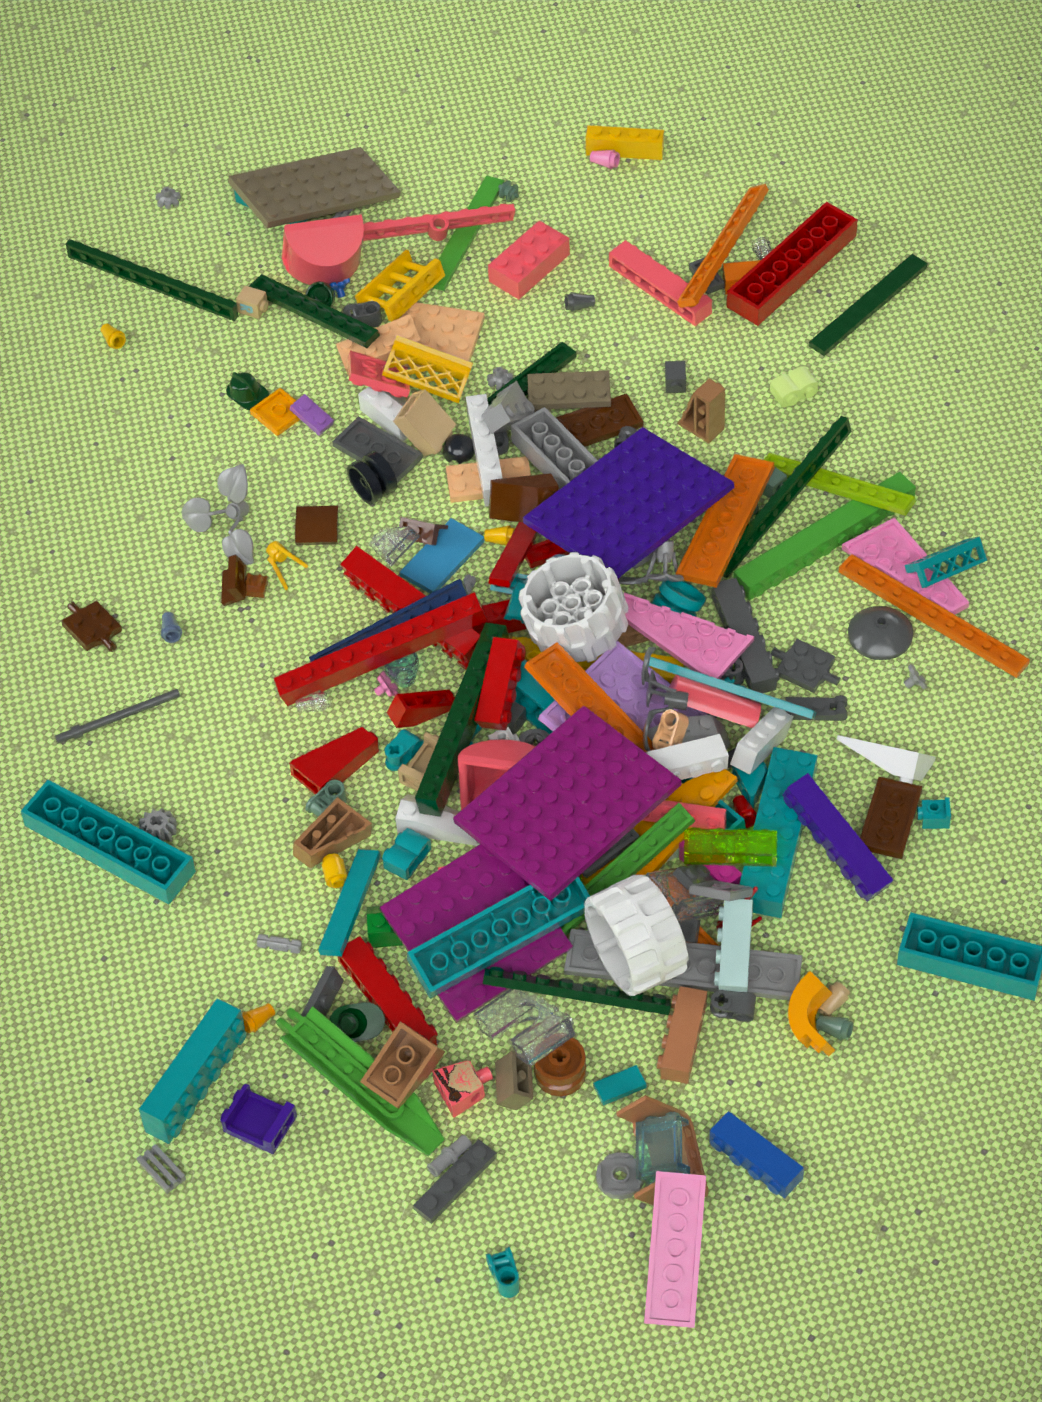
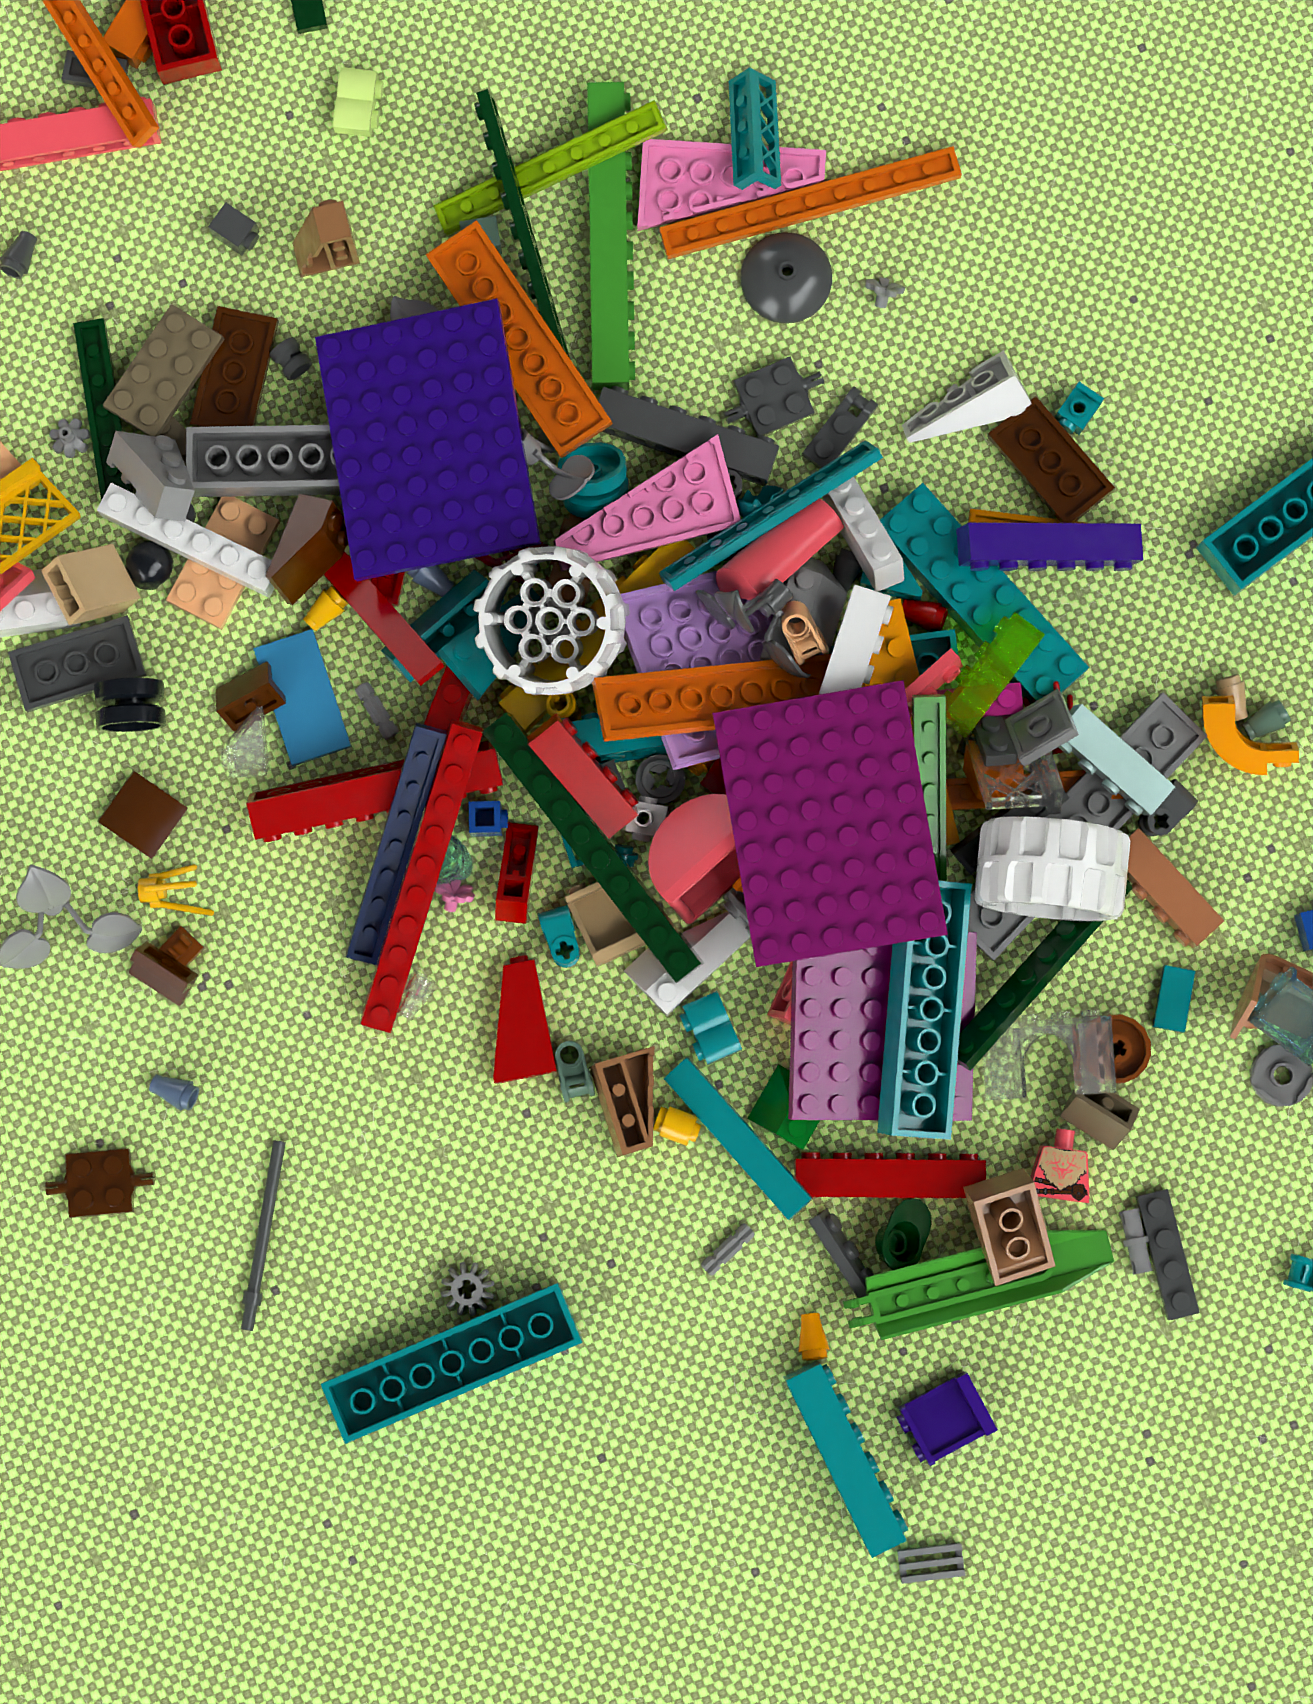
camera: 60 degrees left, 30 degrees up
(441, 671) = (487, 818): none -> blue brick

